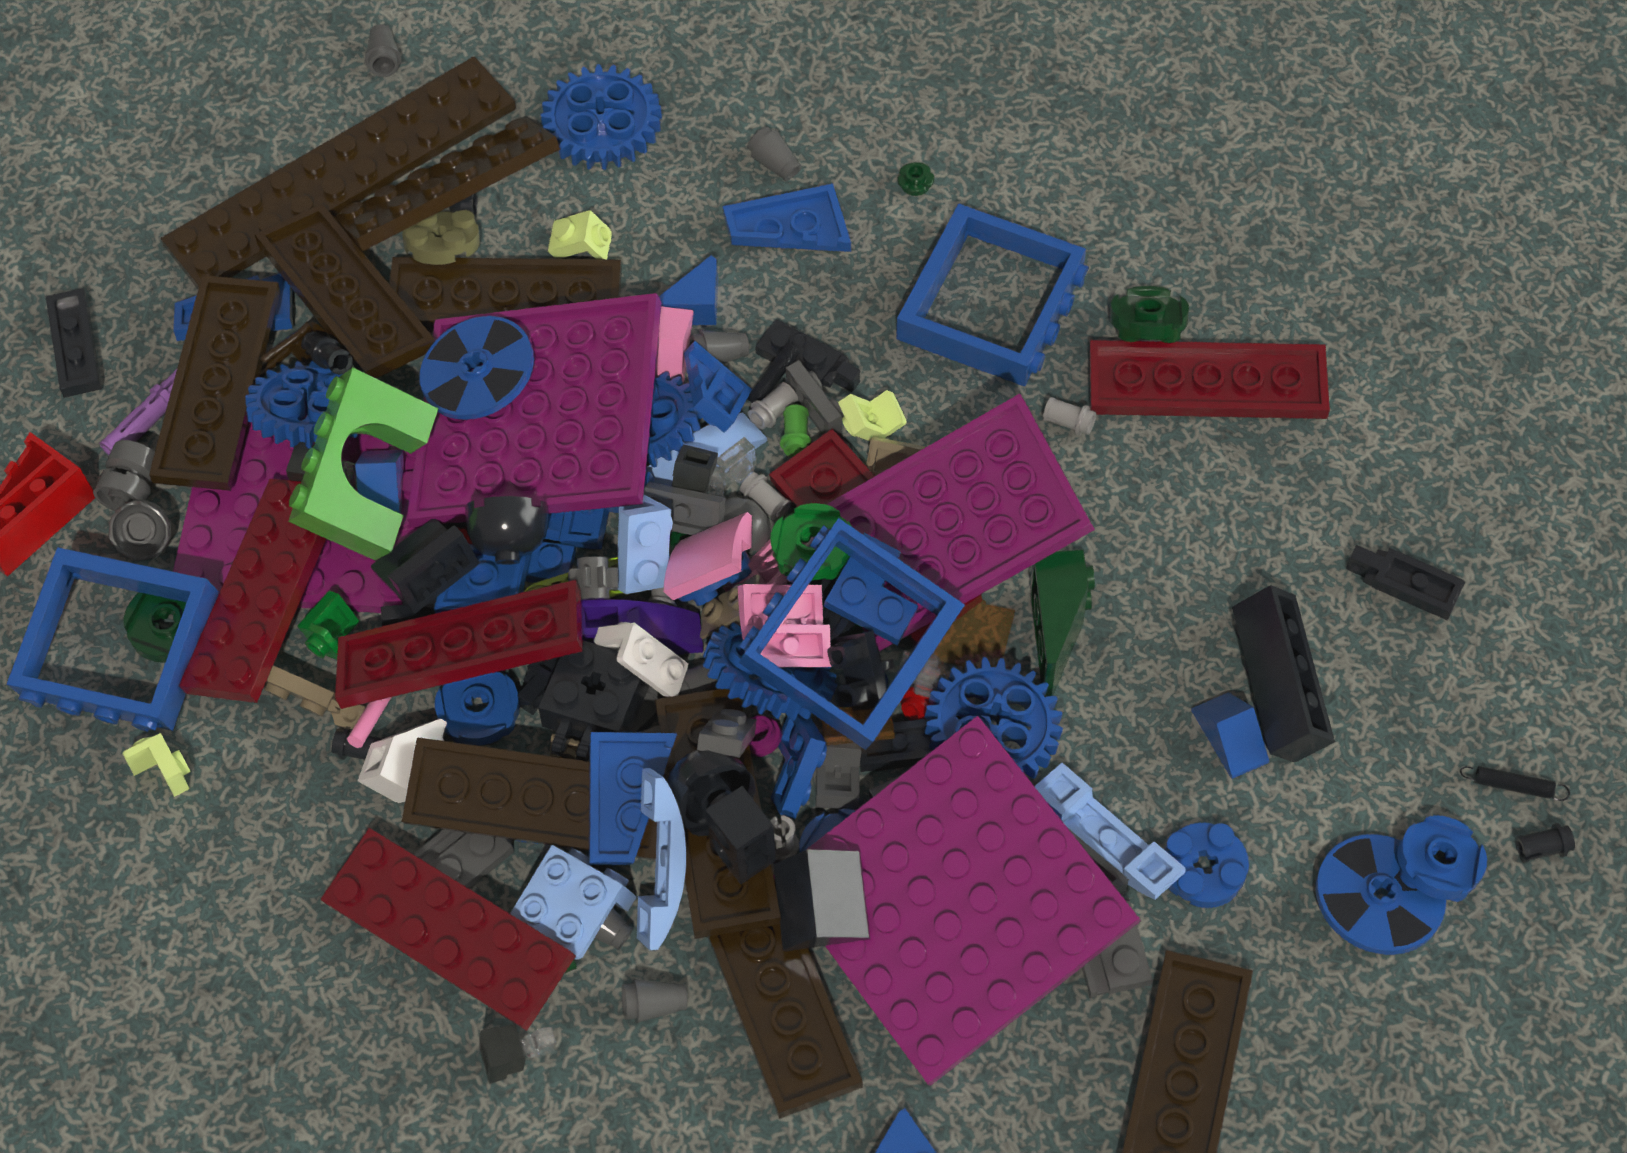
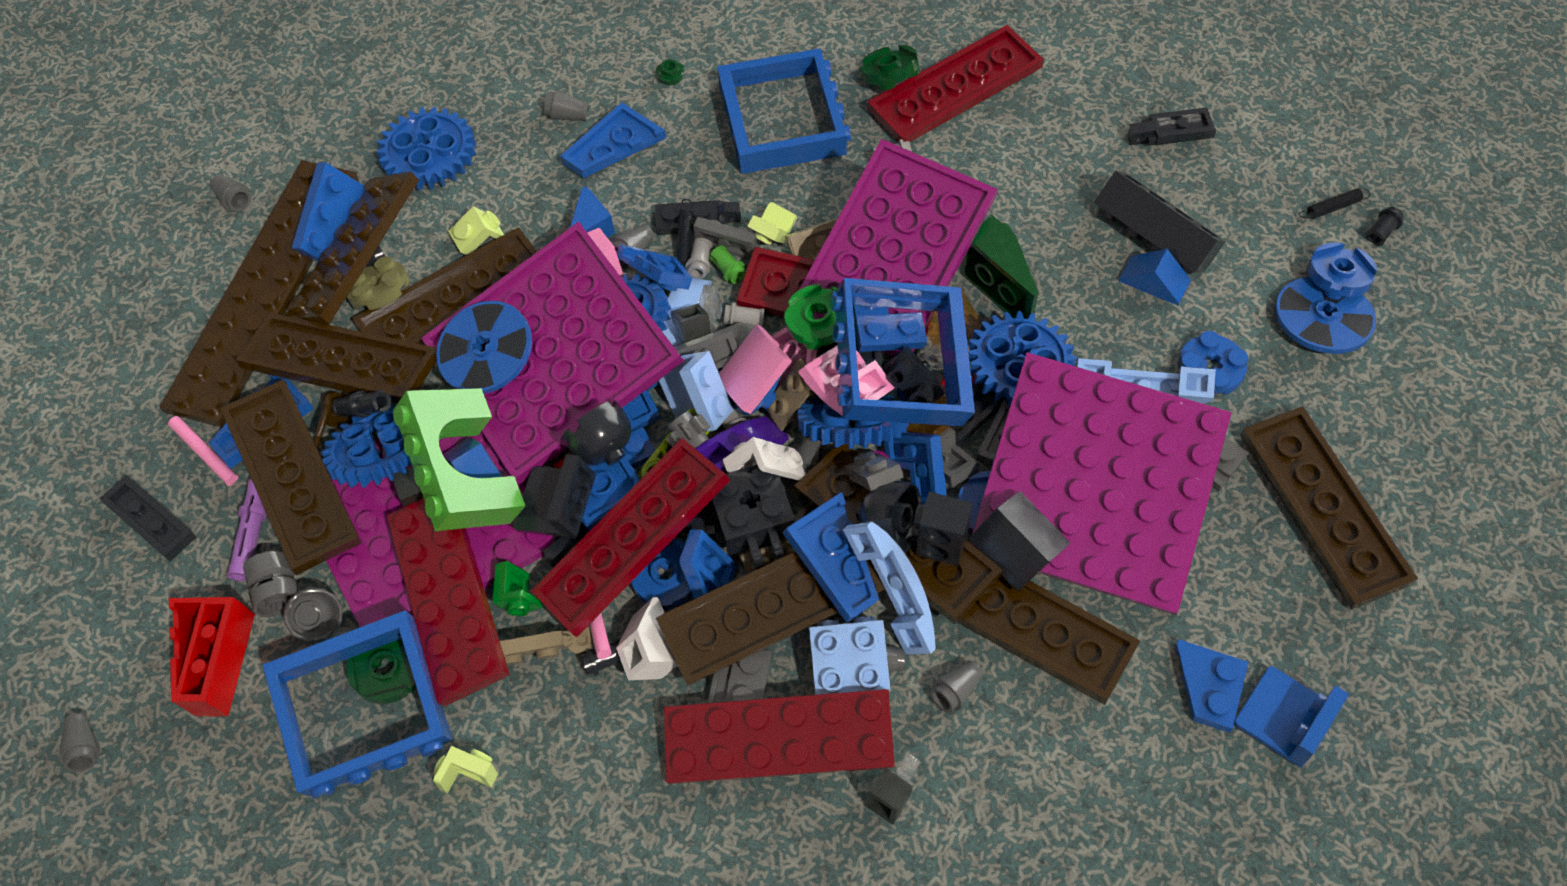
camera: 35 degrees left, 0 degrees up
(167, 305) = (202, 450): none -> bright pink bar
(450, 126) = (325, 209): none -> blue wing
(511, 720) = (705, 564): none -> blue wing

